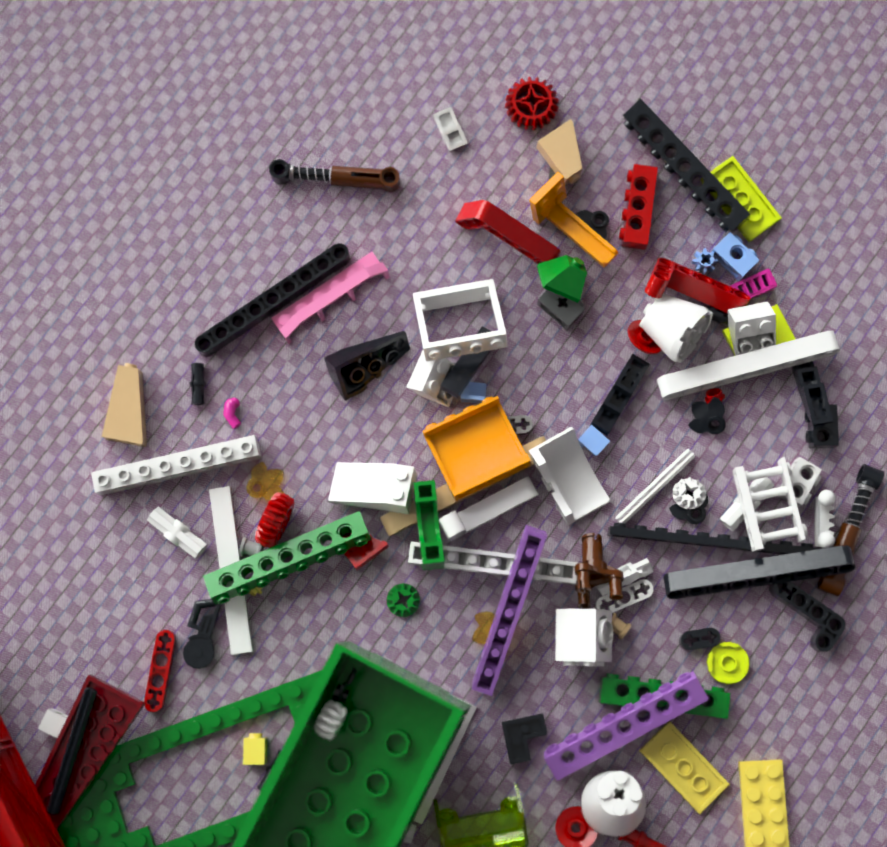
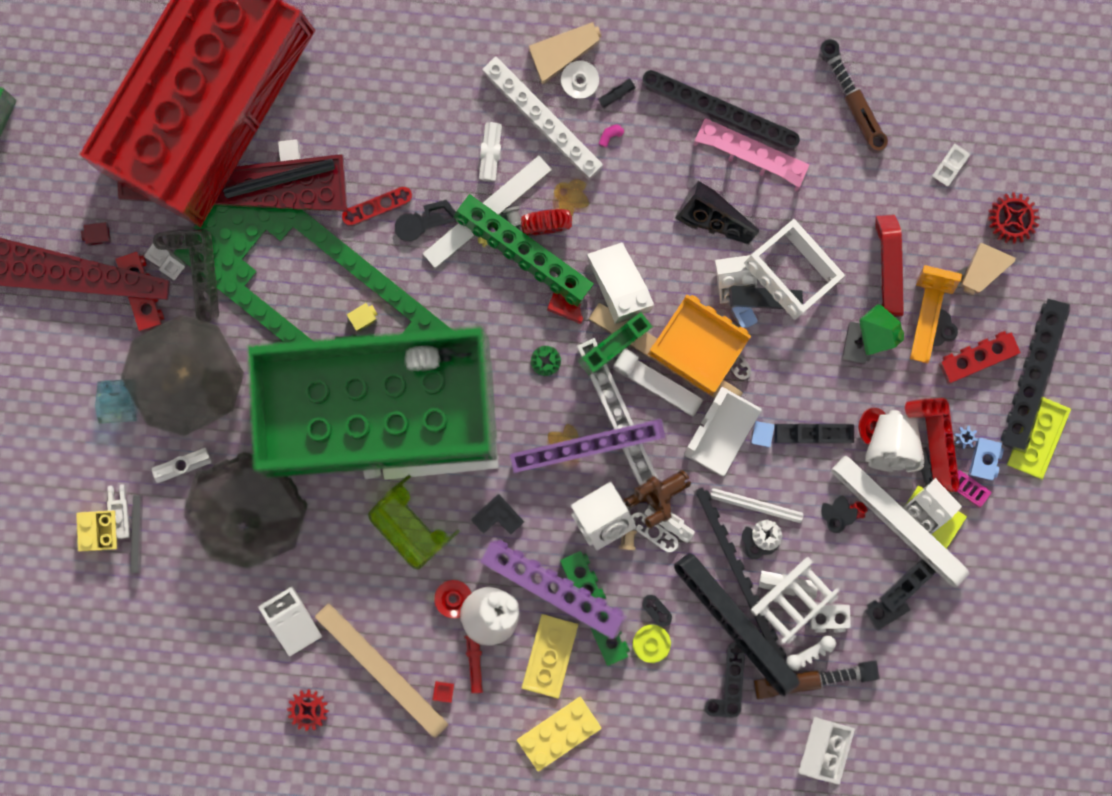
camera: 55 degrees right, 5 degrees up
(156, 402) = (582, 70): none -> white dish

